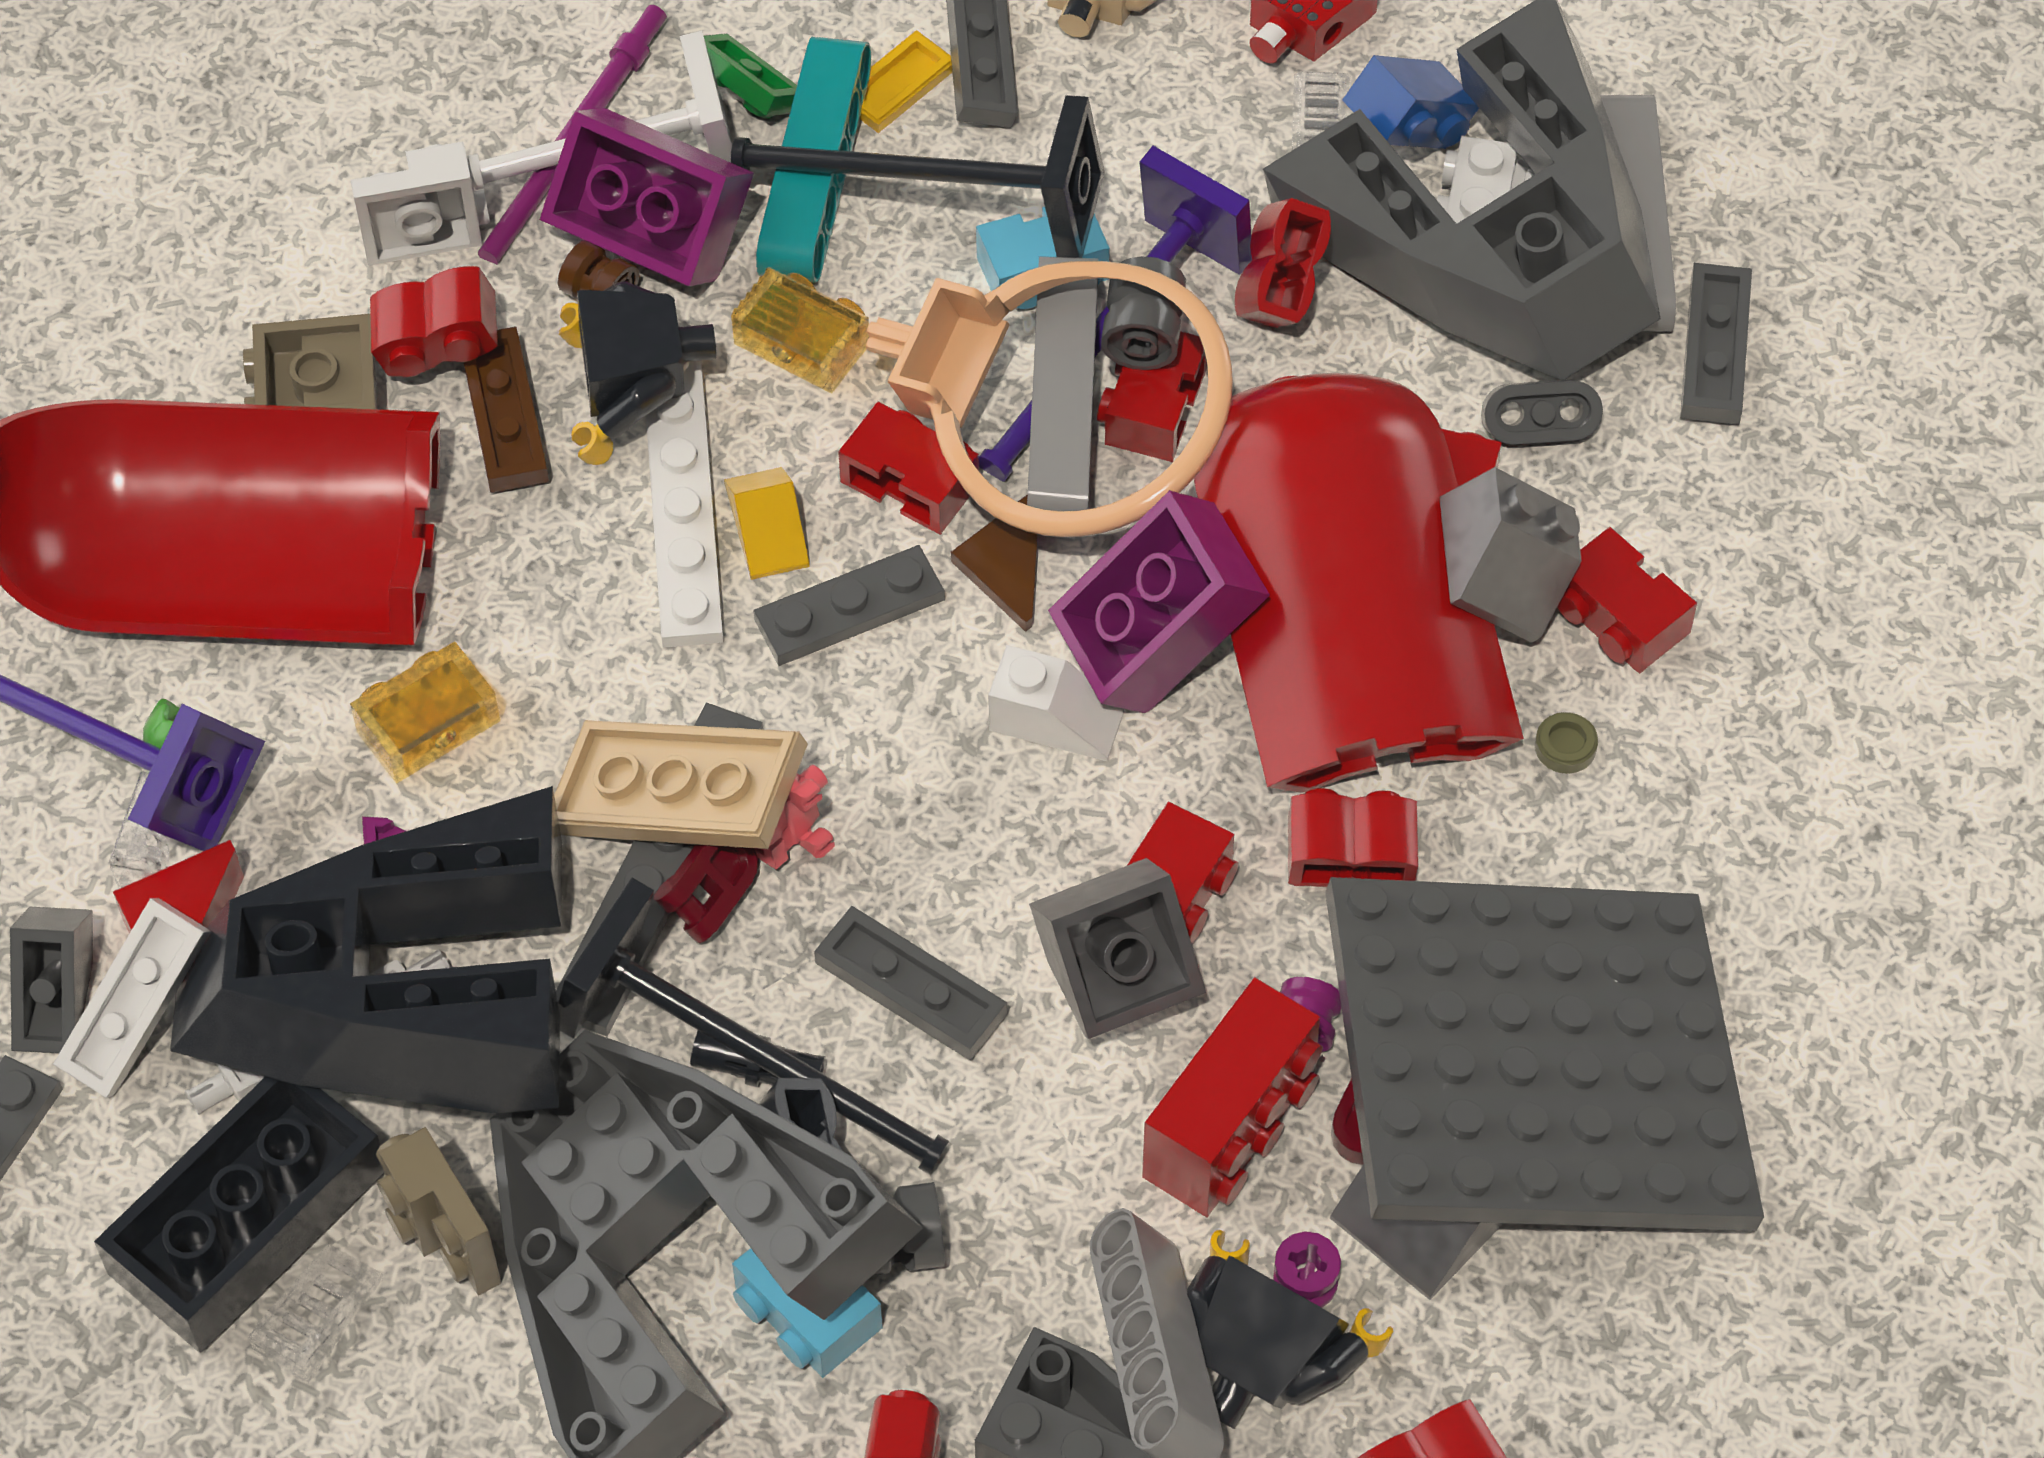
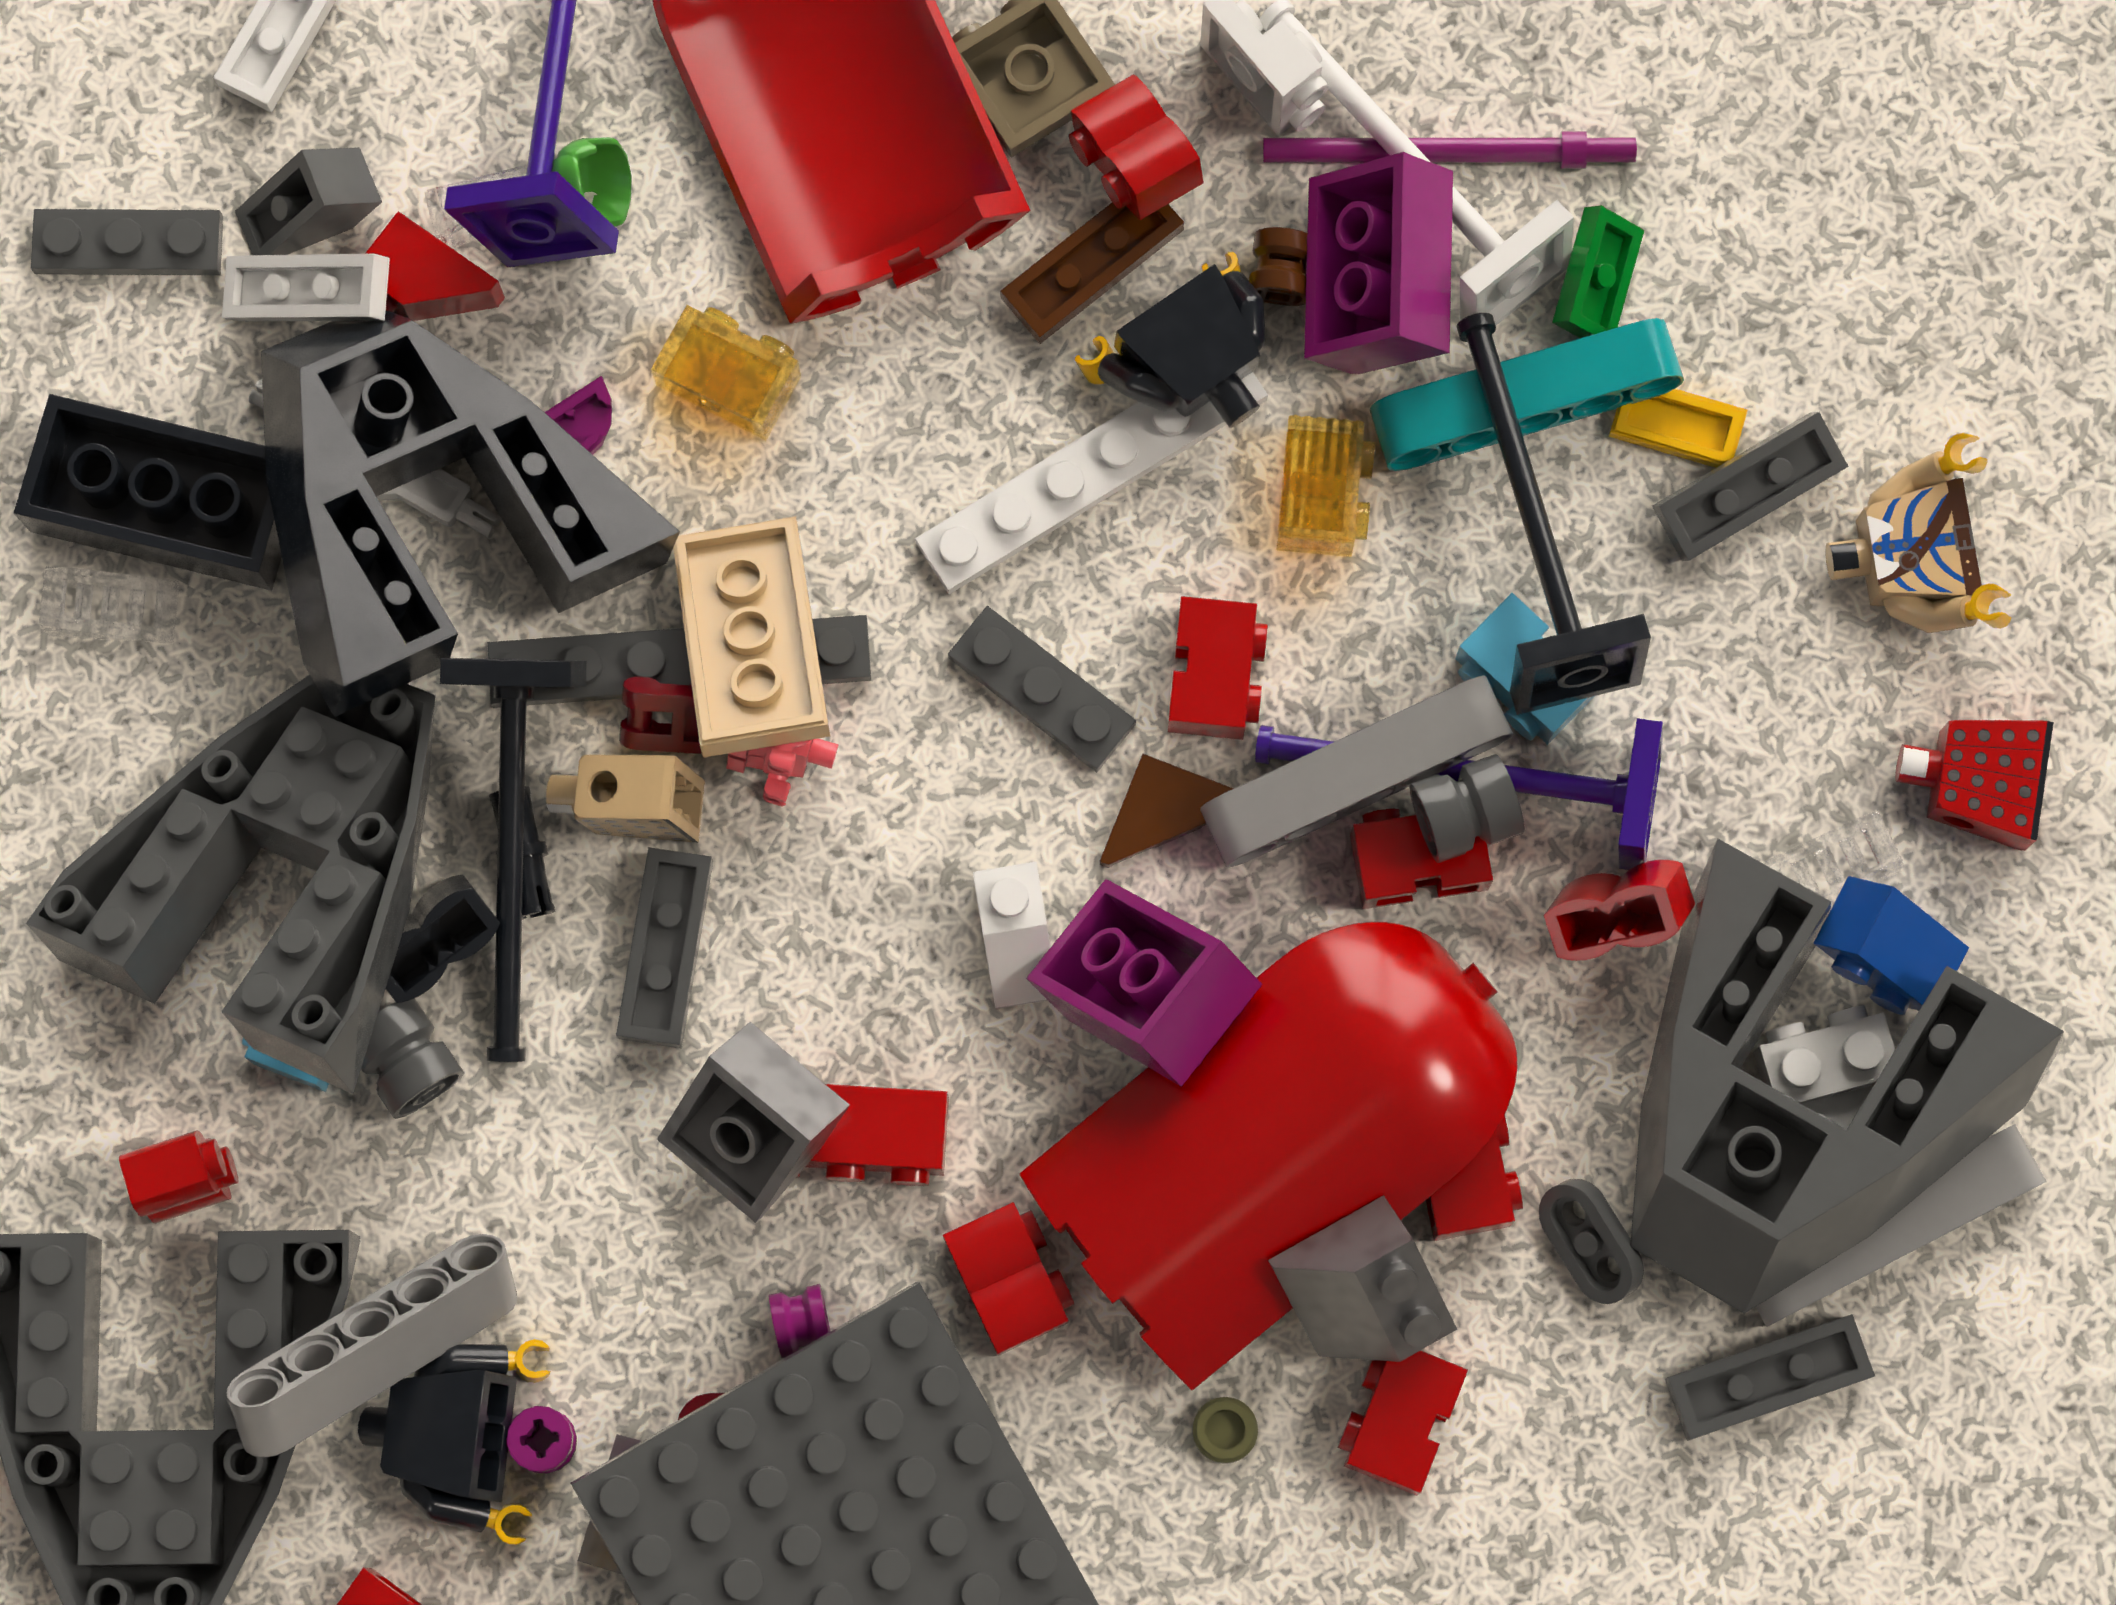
camera: 65 degrees right, 20 degrees up
(434, 1209) = (237, 646): dark tan plate -> none
(763, 937) = (631, 796): none -> tan torso
(767, 522) = (1095, 563): yellow slope -> none
(953, 348) = (1322, 649): light nougat brick -> none
(1232, 1099) = (660, 1298): red brick -> none

